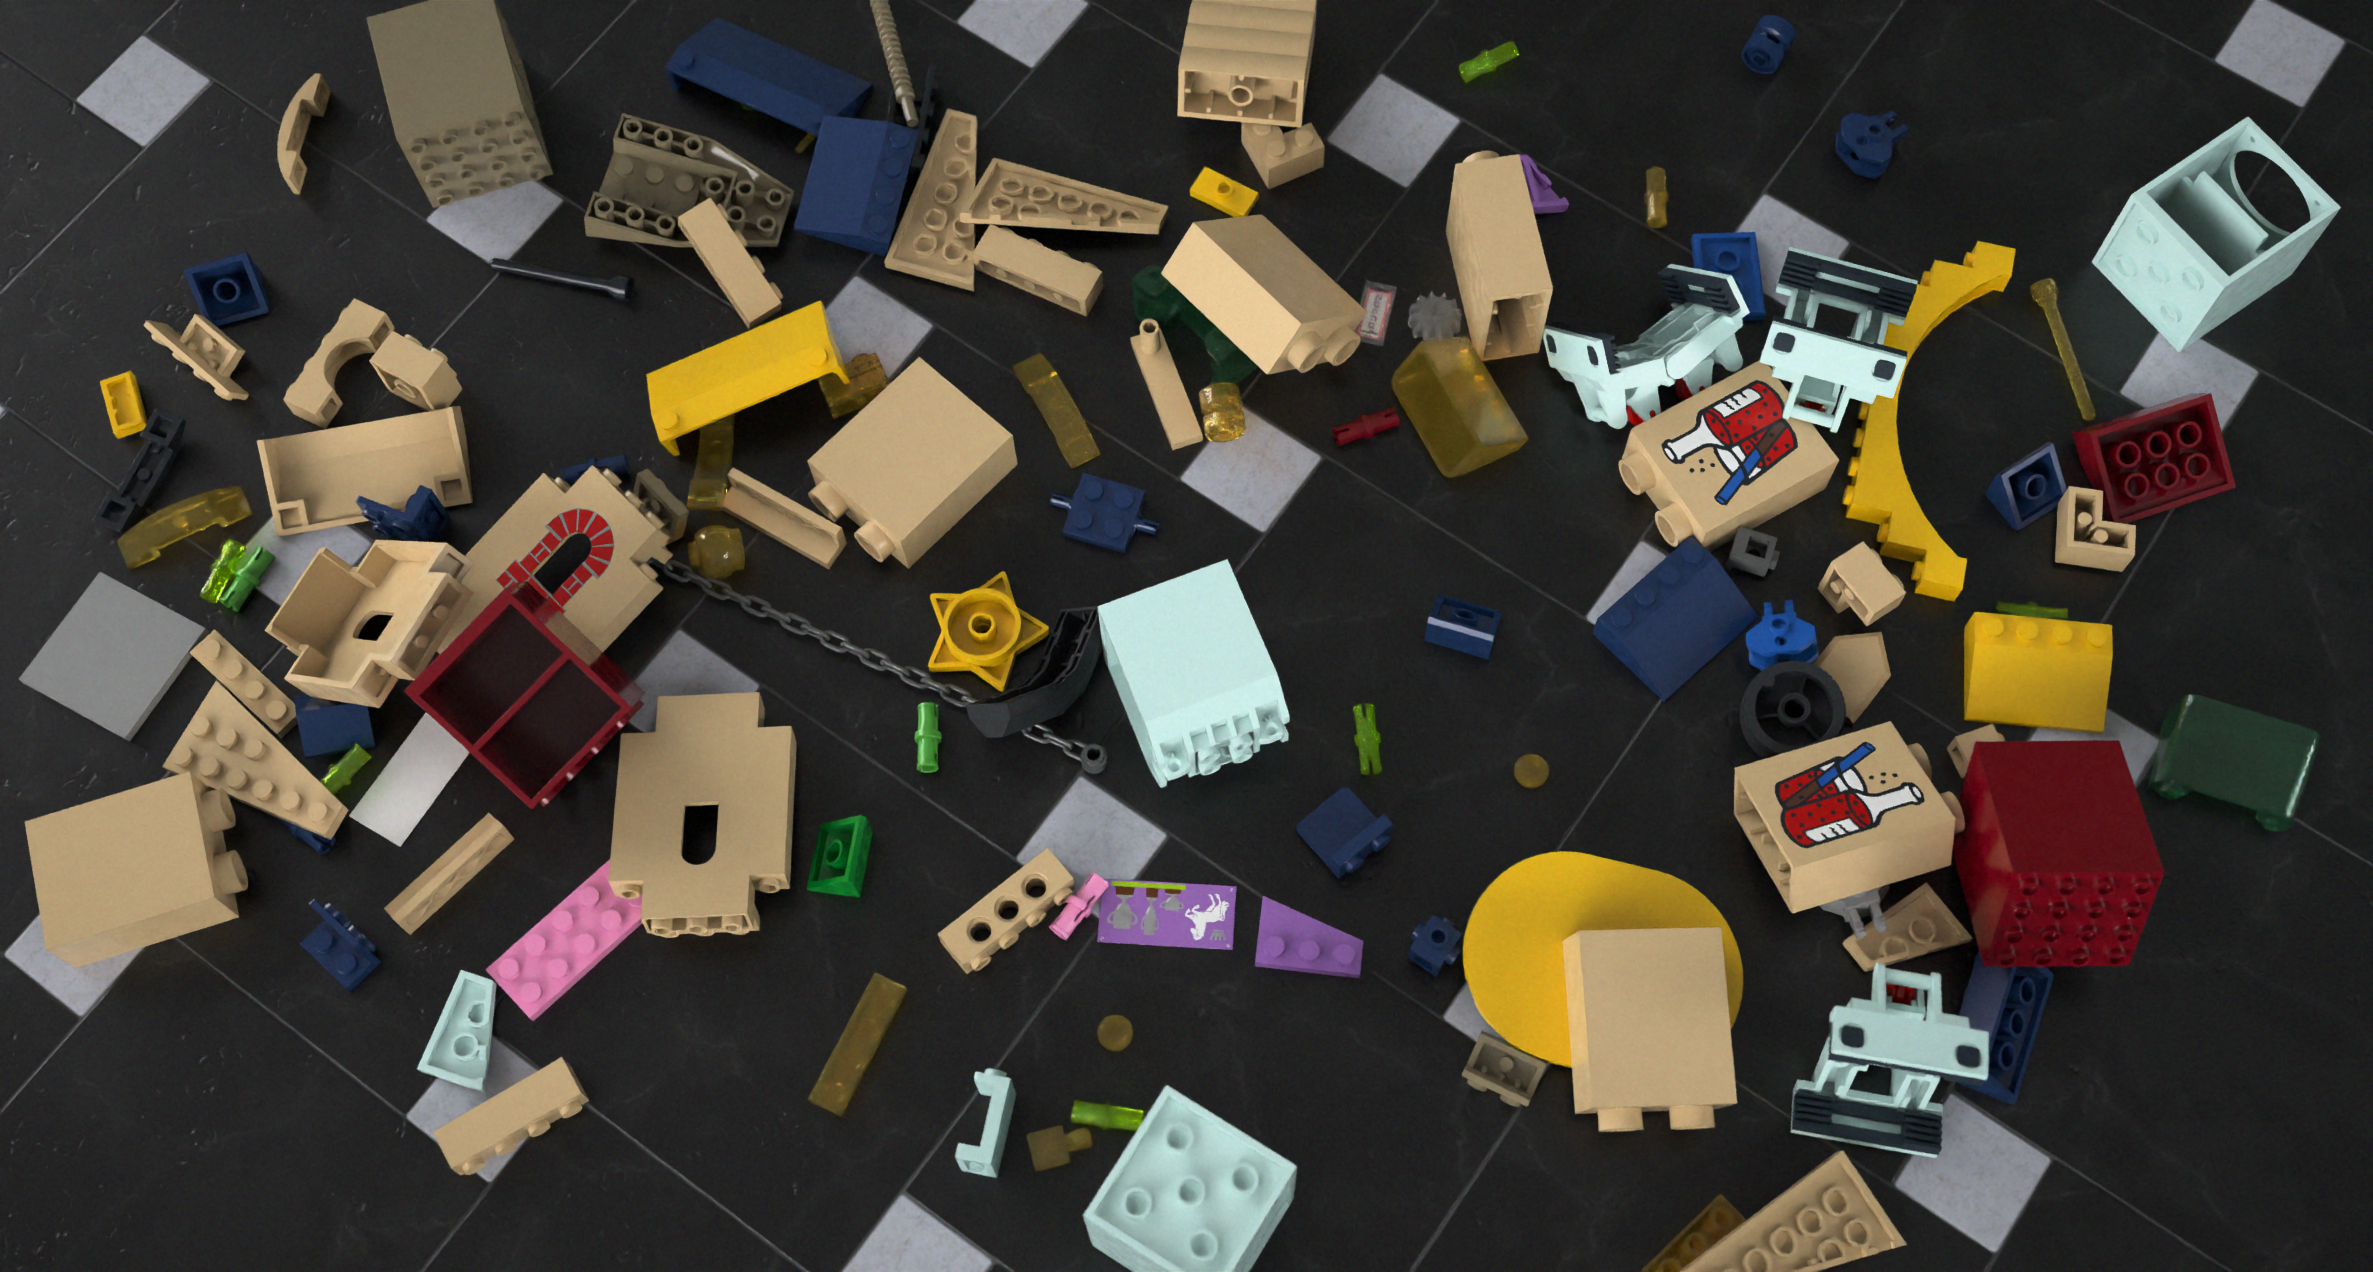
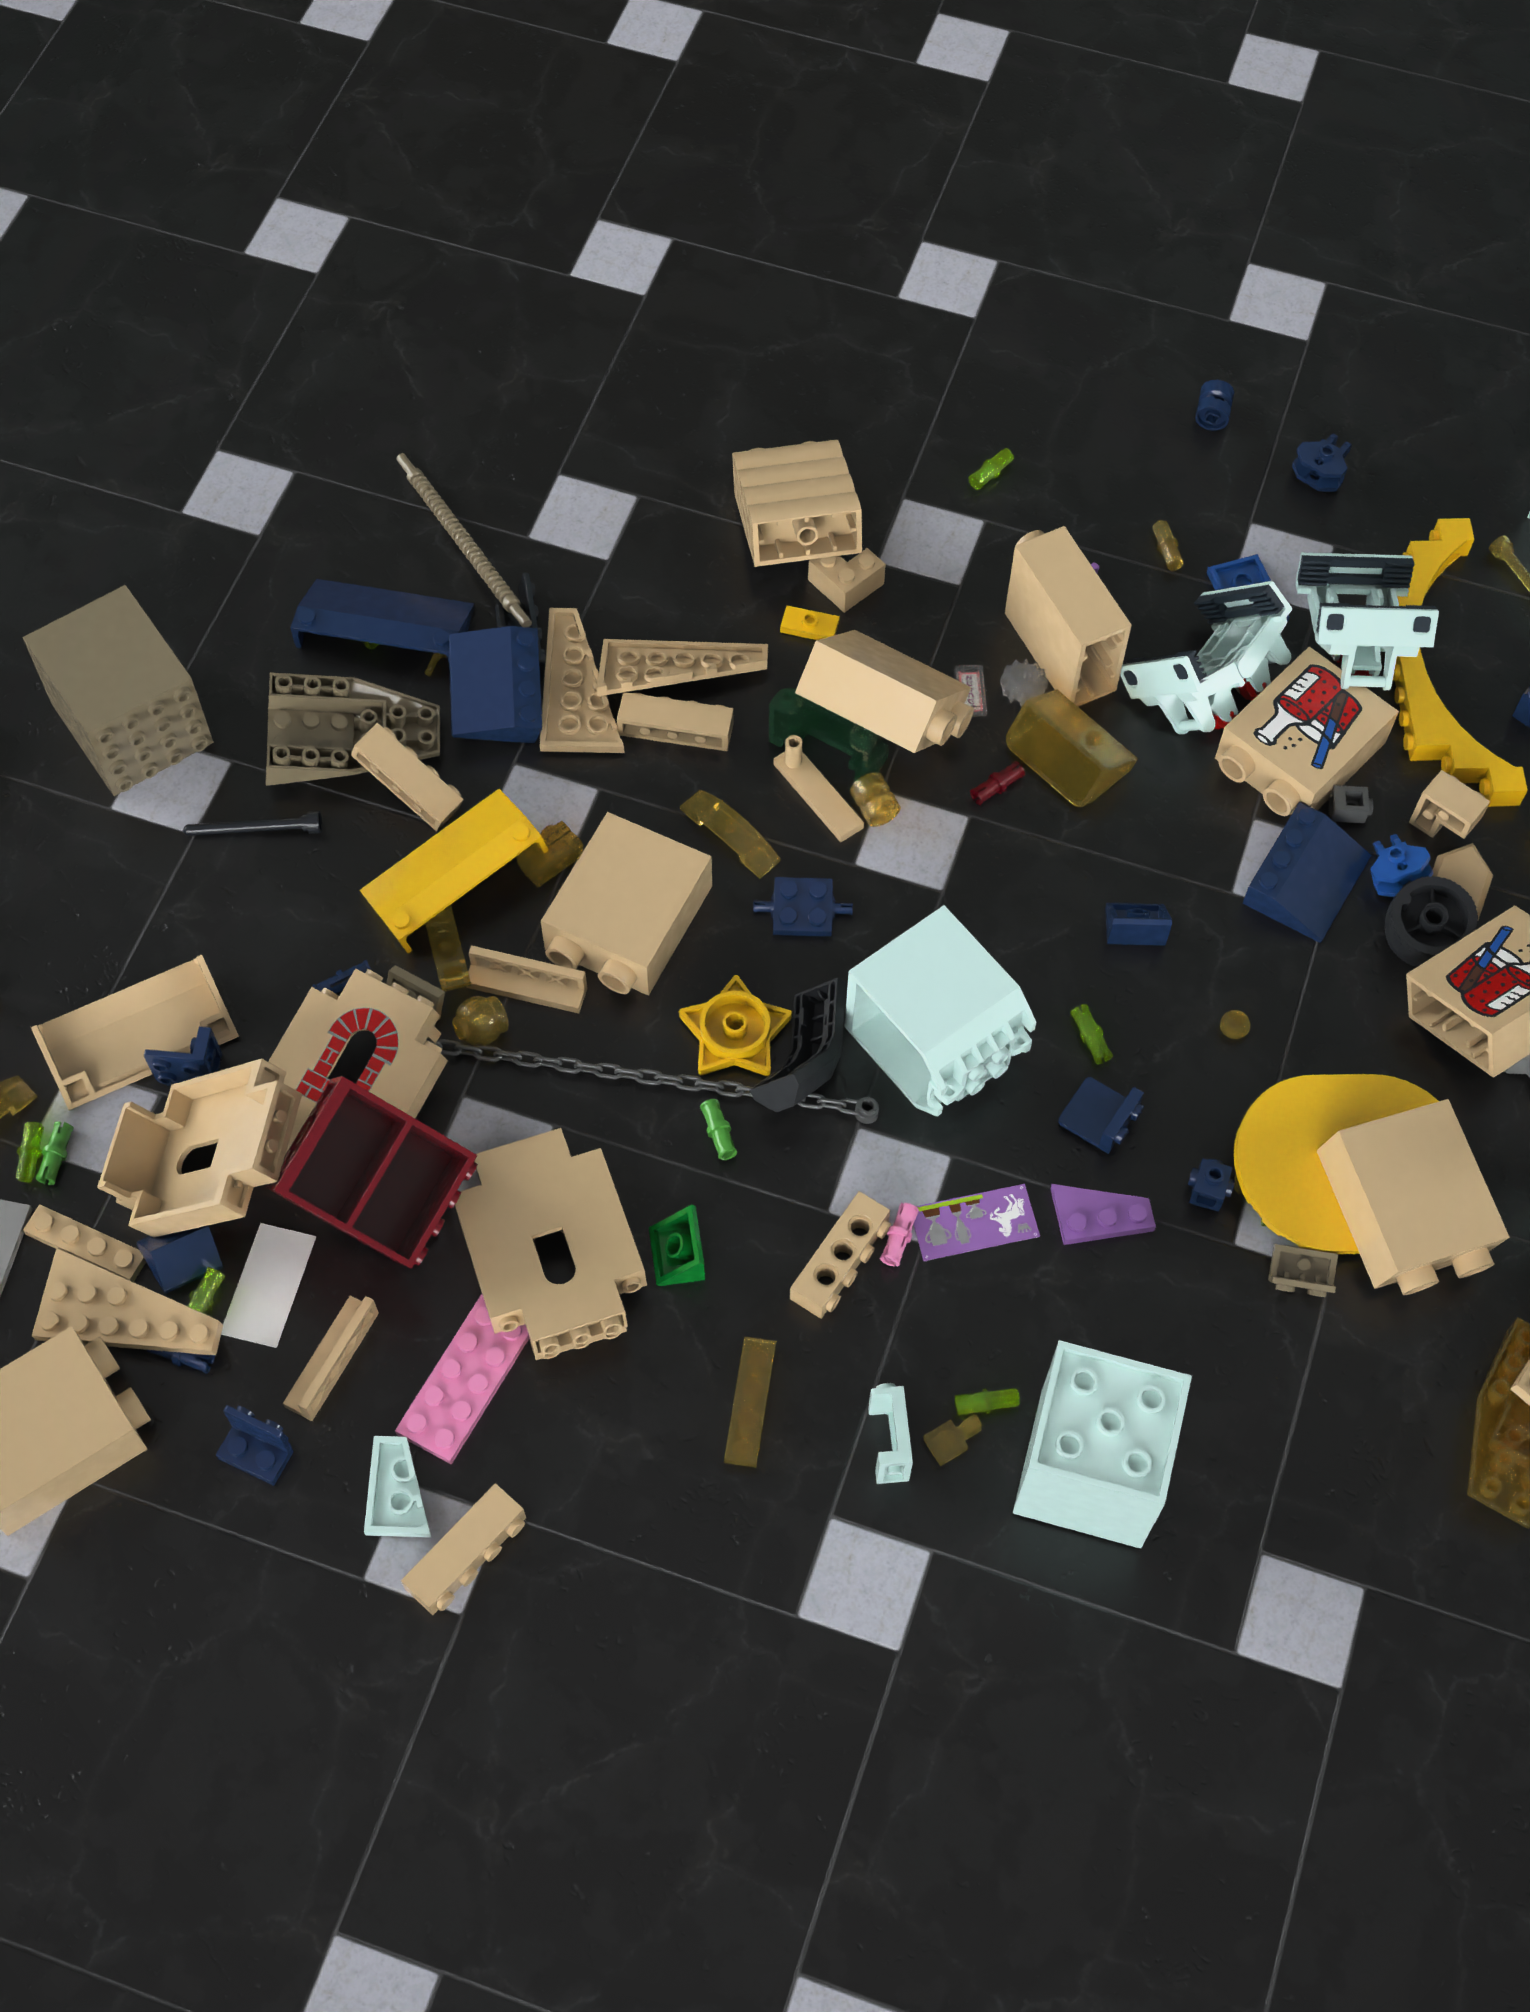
camera: 20 degrees left, 5 degrees down
(357, 332) = (85, 915): tan arch -> none
(416, 372) = (154, 936): tan brick -> none
(1115, 1032) = (967, 1331): clear yellow plate -> none

